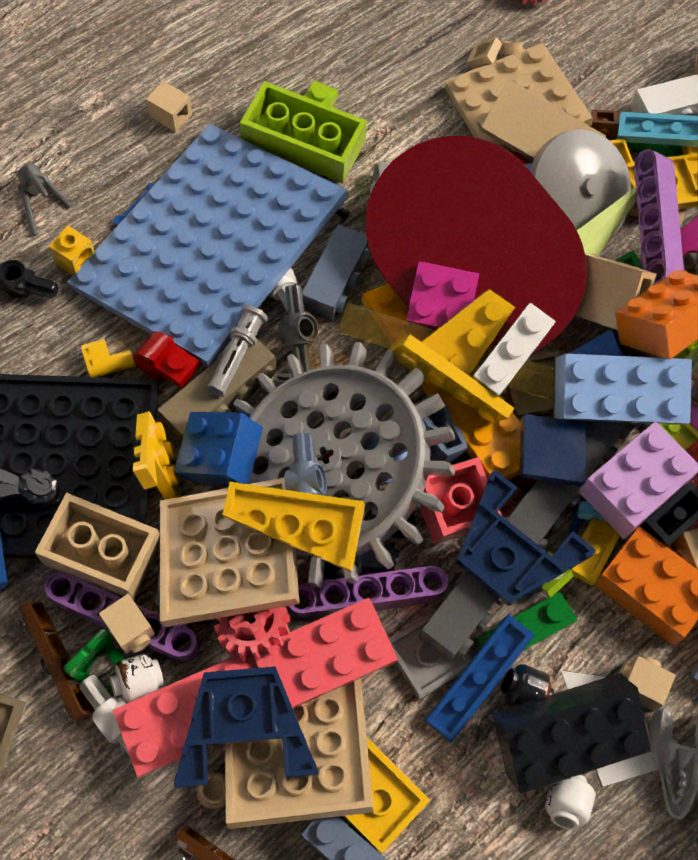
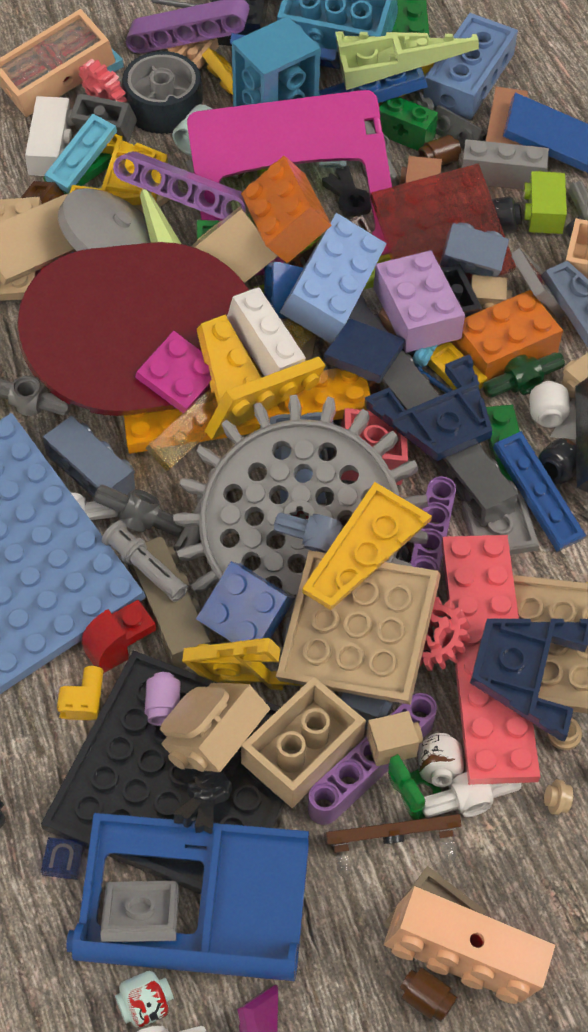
camera: 65 degrees left, 10 degrees down
(83, 463) = (211, 725): none -> tan brick
(109, 418) = (161, 697): none -> lavender brick
(138, 805) = (558, 797): none -> tan plate
(591, 655) = (549, 404): none -> white head
(620, 619) = (523, 374): none -> dark green axle

